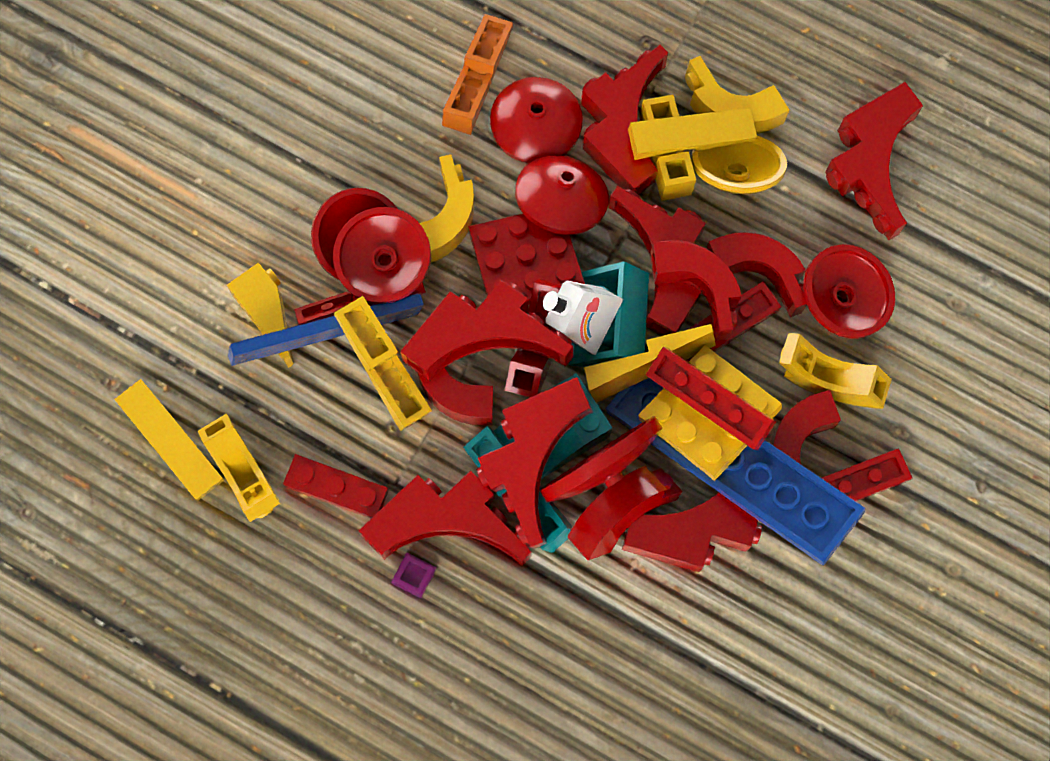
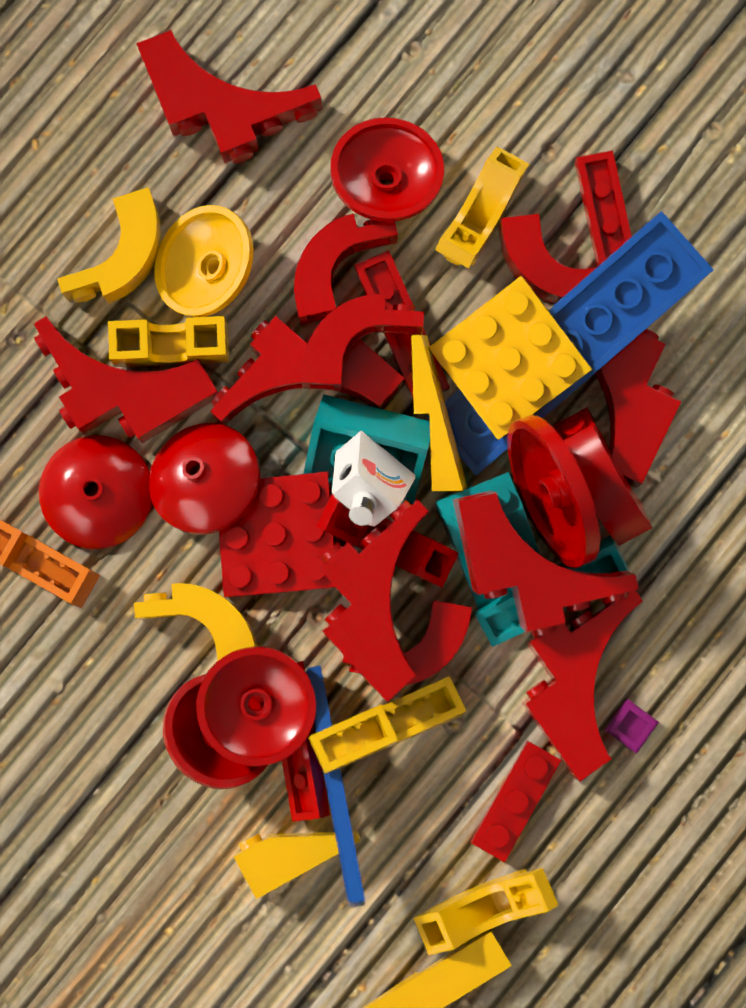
camera: 80 degrees left, 10 degrees up
(691, 132) = (162, 309): yellow slope -> none
(710, 398) = (505, 354): red plate -> none

